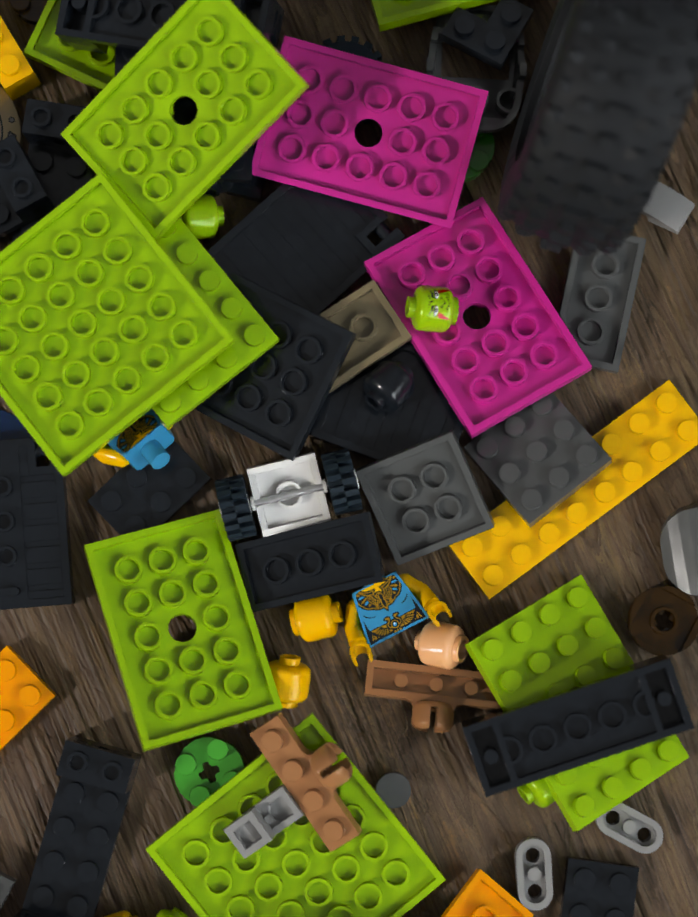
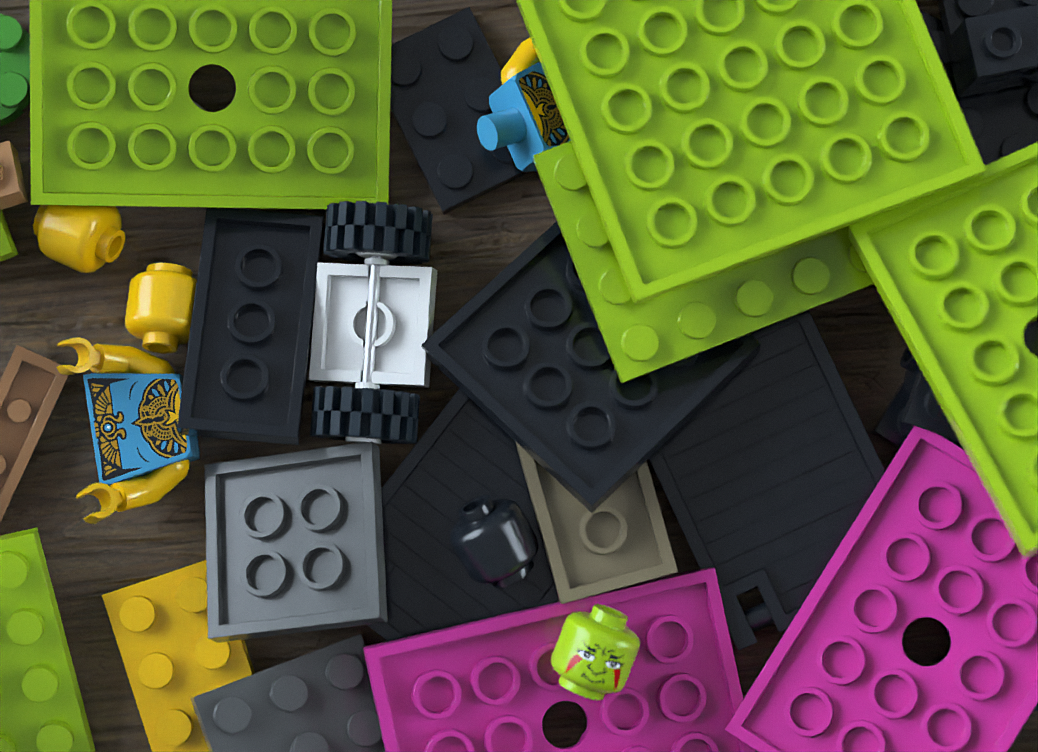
camera: 110 degrees right, 0 degrees up
(204, 217) = (868, 328): lime head -> none
(441, 645) = (47, 493): light nougat head -> none

